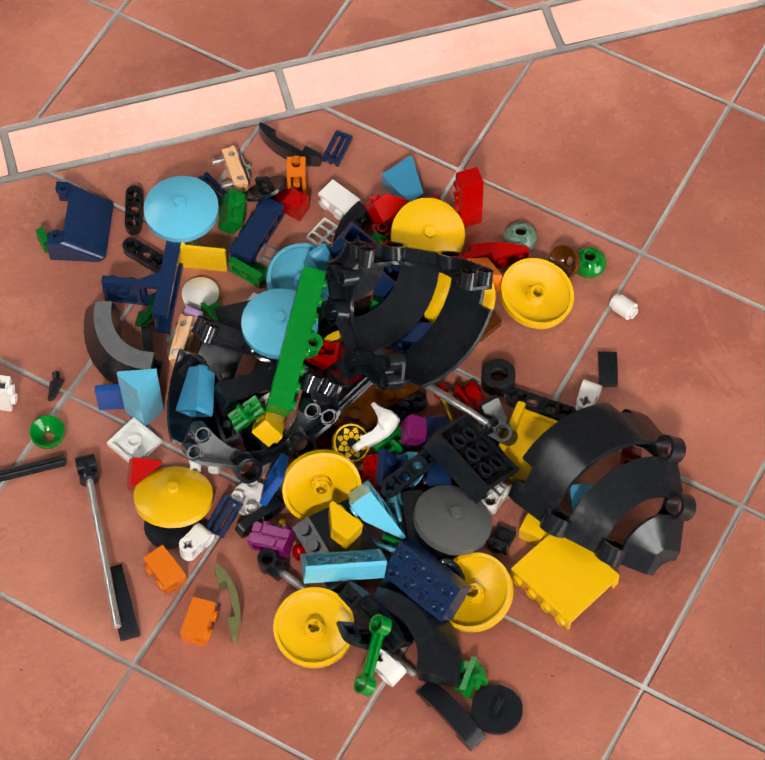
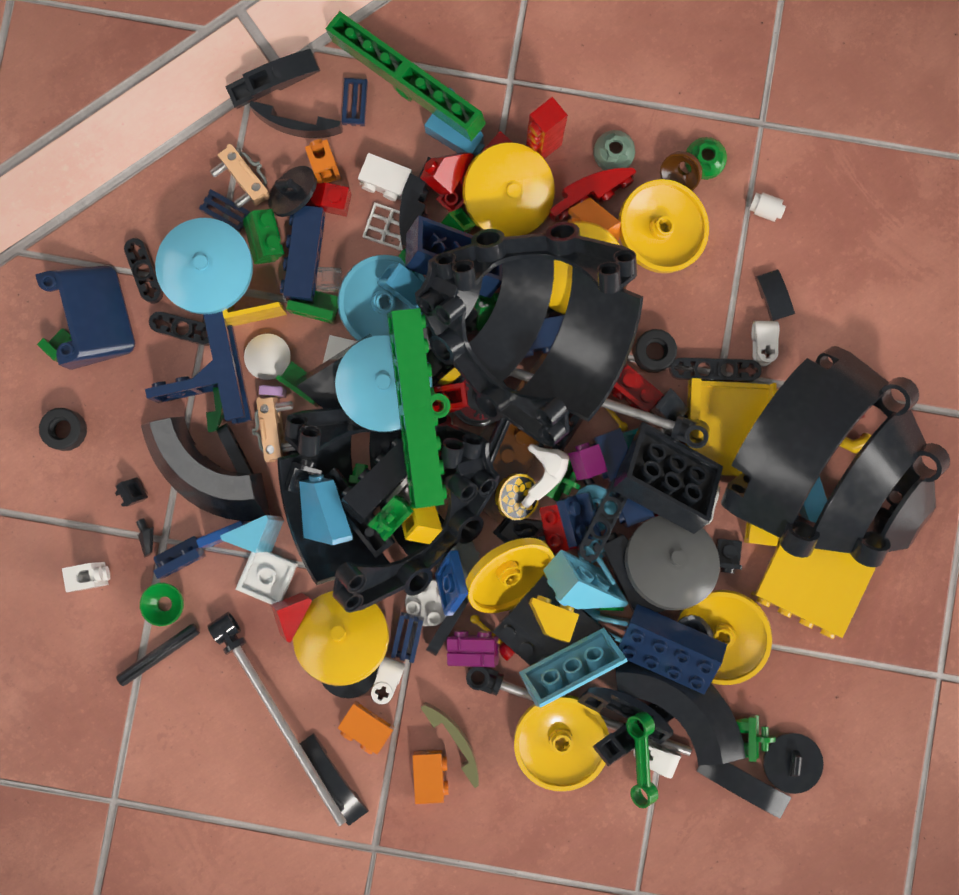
camera: 20 degrees left, 25 degrees up
(24, 284) = (49, 422): none -> black tyre
(58, 350) = (131, 492): none -> black tile
(73, 406) = (177, 557): none -> dark blue bracket
(286, 112) = (272, 76): none -> black slope
(382, 140) = (405, 76): none -> green hinge

